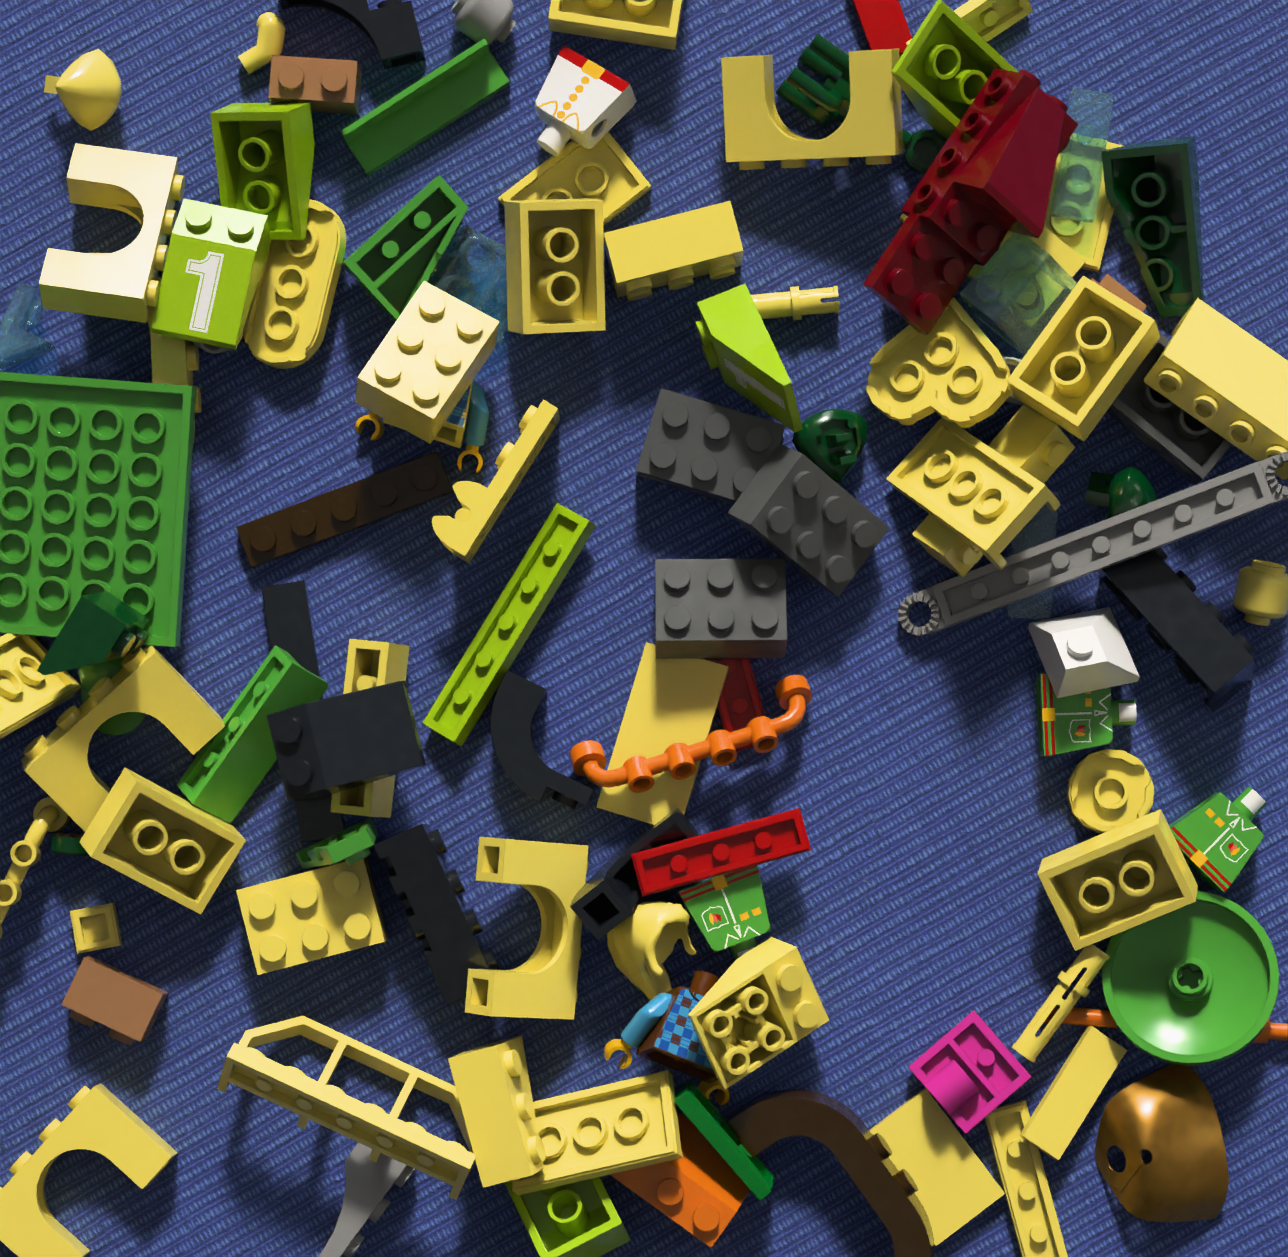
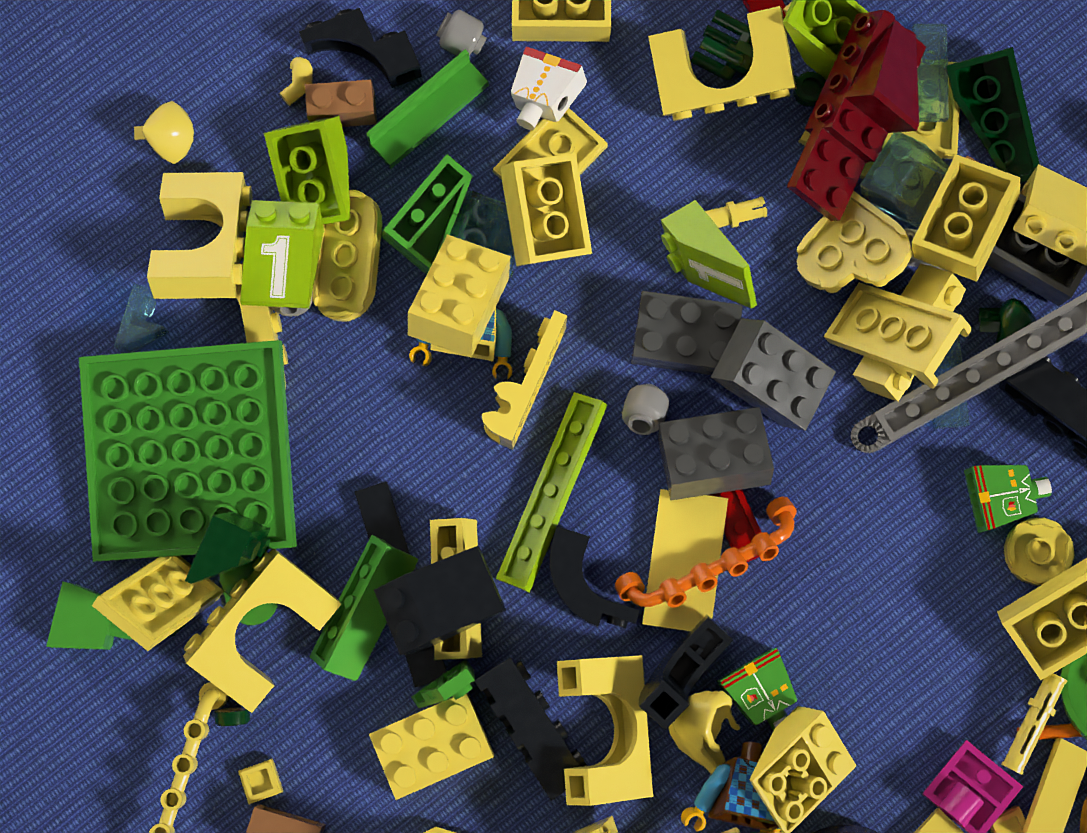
camera: 10 degrees left, 5 degrees down
(162, 841) = (304, 703): light yellow brick -> none
(344, 509) = (410, 422): dark brown plate -> none
(642, 538) = (645, 409): none -> light grey head
(674, 250) = (635, 185): light yellow brick -> none
(720, 852) = (748, 644): red tile -> none
(832, 441) = (781, 309): dark green piece -> none
(1083, 652) = (1001, 445): white slope -> none

